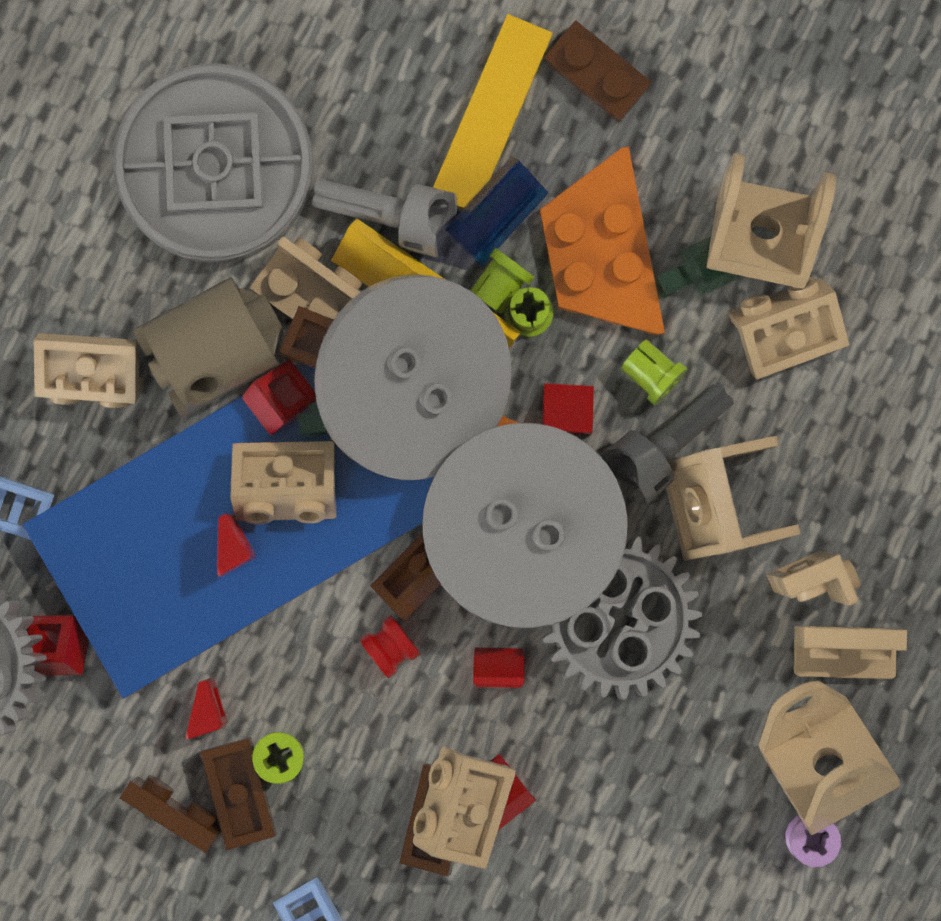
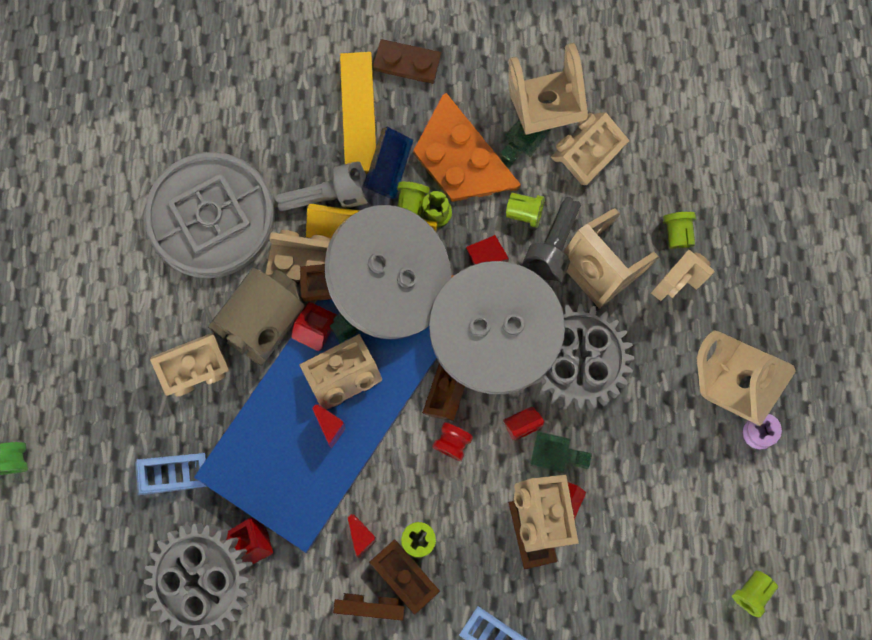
camera: 25 degrees left, 10 degrees down
(518, 728) = (553, 453): none -> clear green plate
(847, 651) = (722, 310): tan bracket -> none
(851, 508) = (680, 229): none -> lime bush

